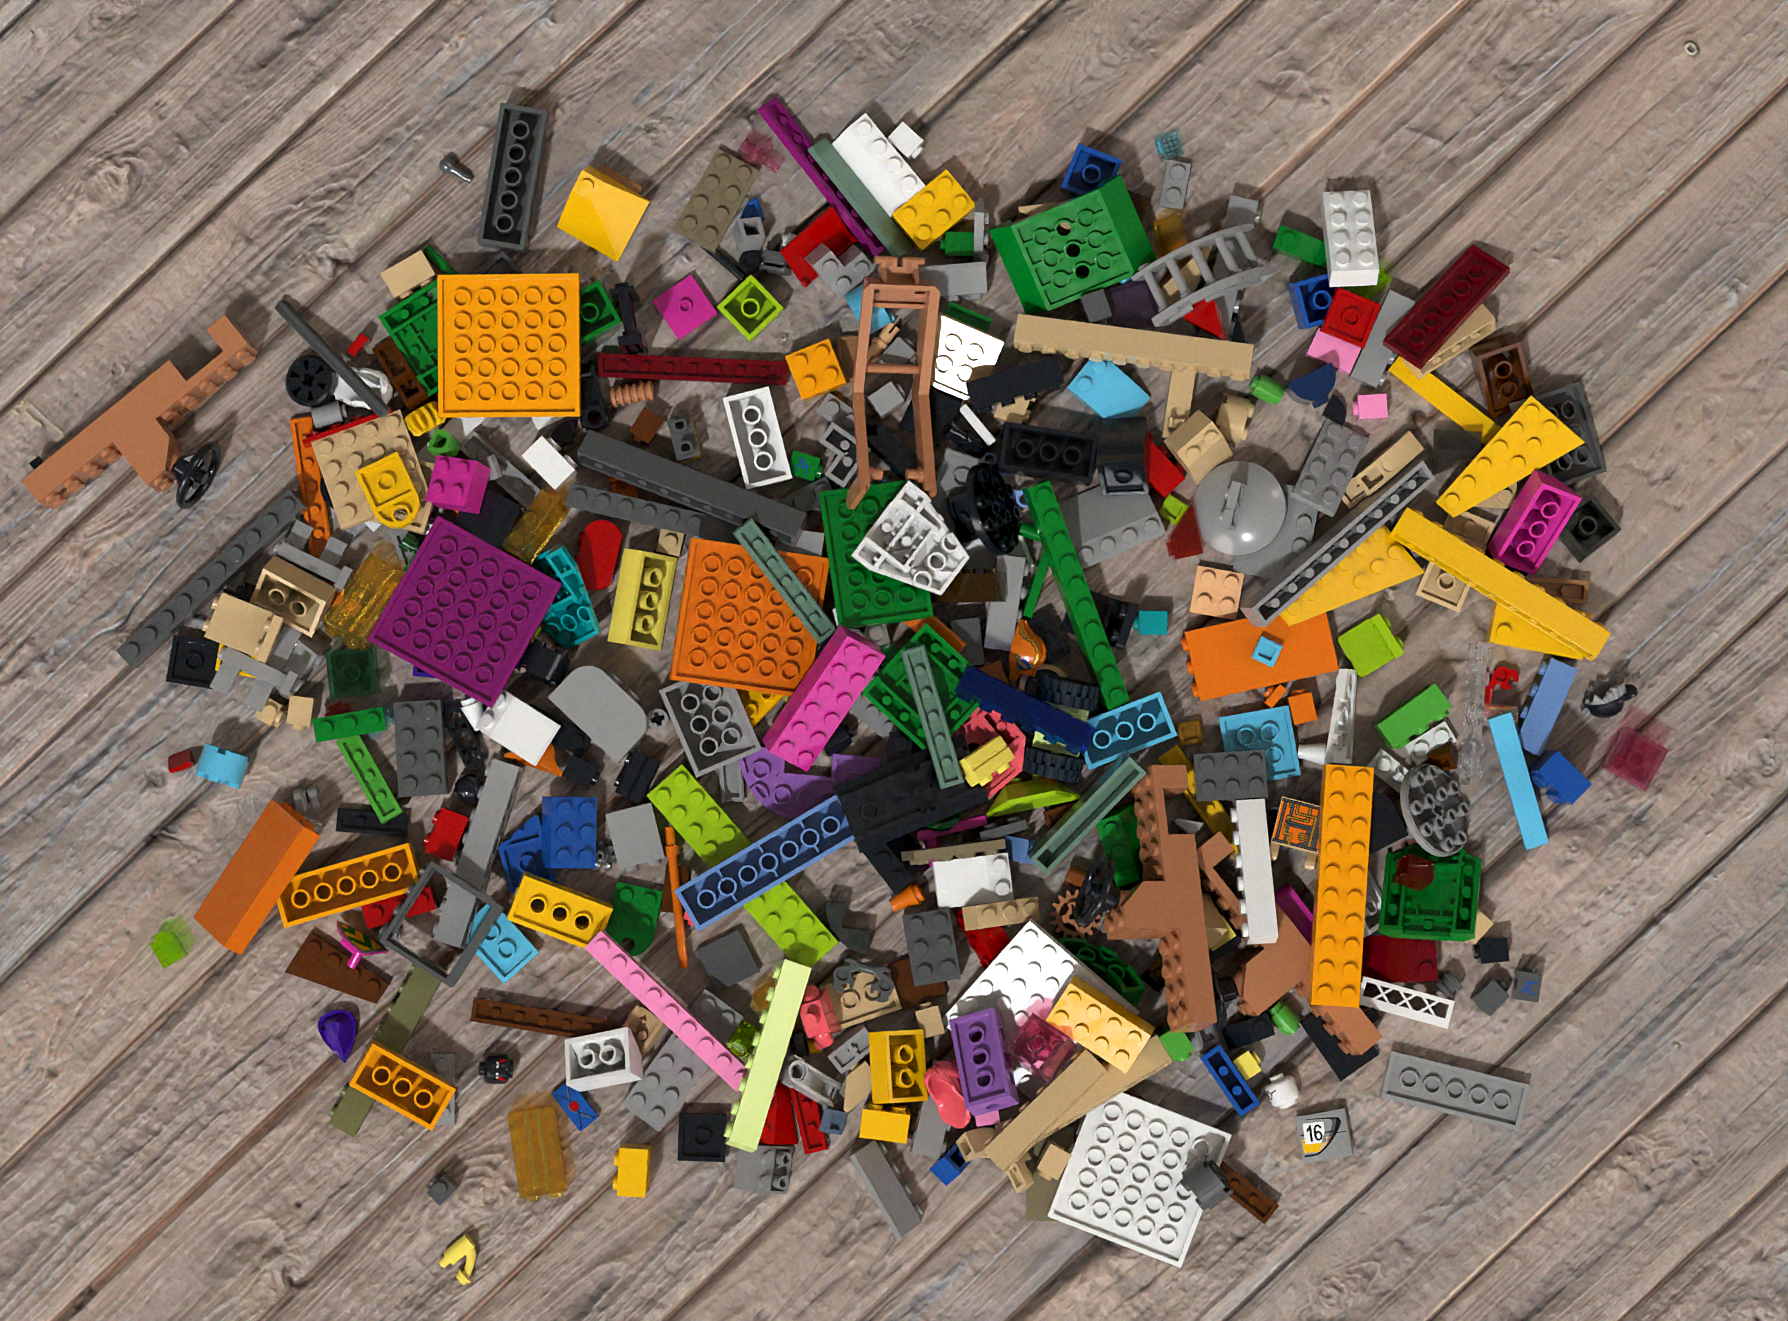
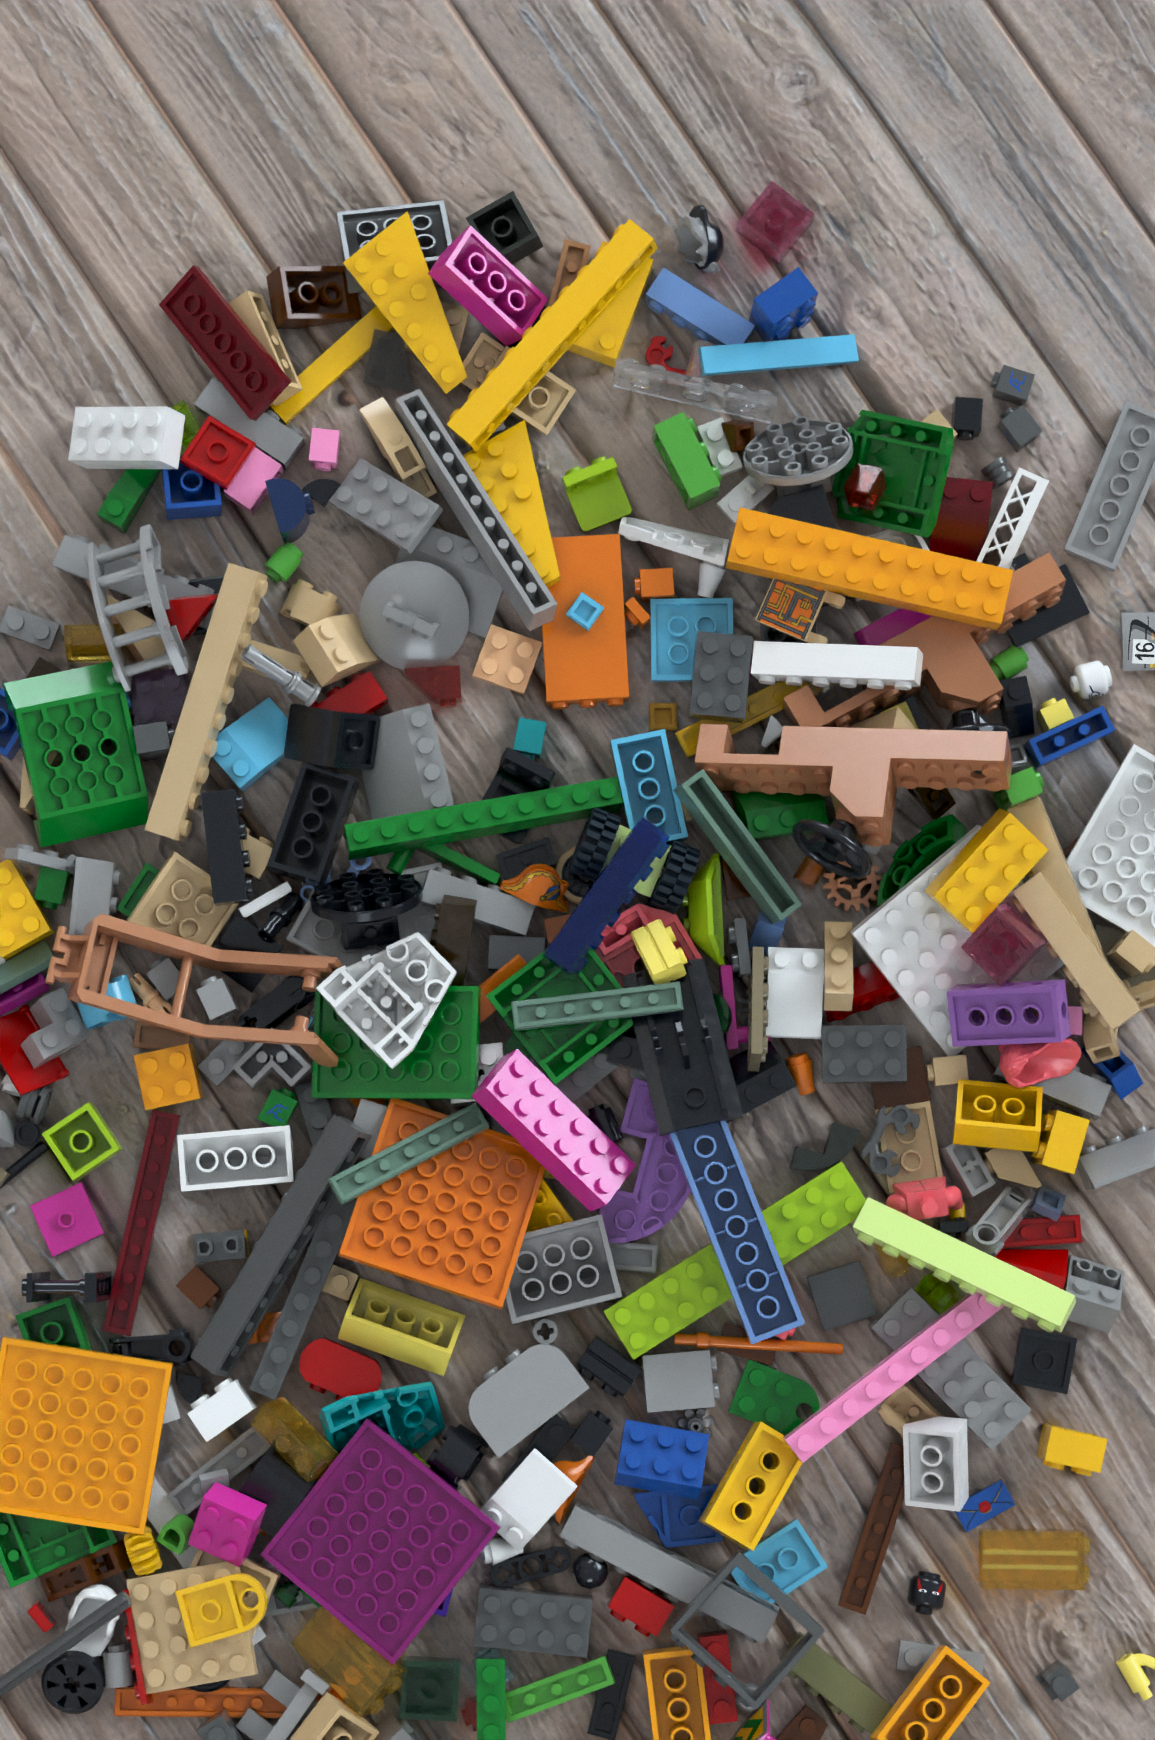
camera: 85 degrees left, 5 degrees down
(632, 393) = (157, 1298): nougat piece -> none
(1163, 414) = (291, 681): none -> light grey pin
(1172, 509) = (403, 693): lime tile -> none

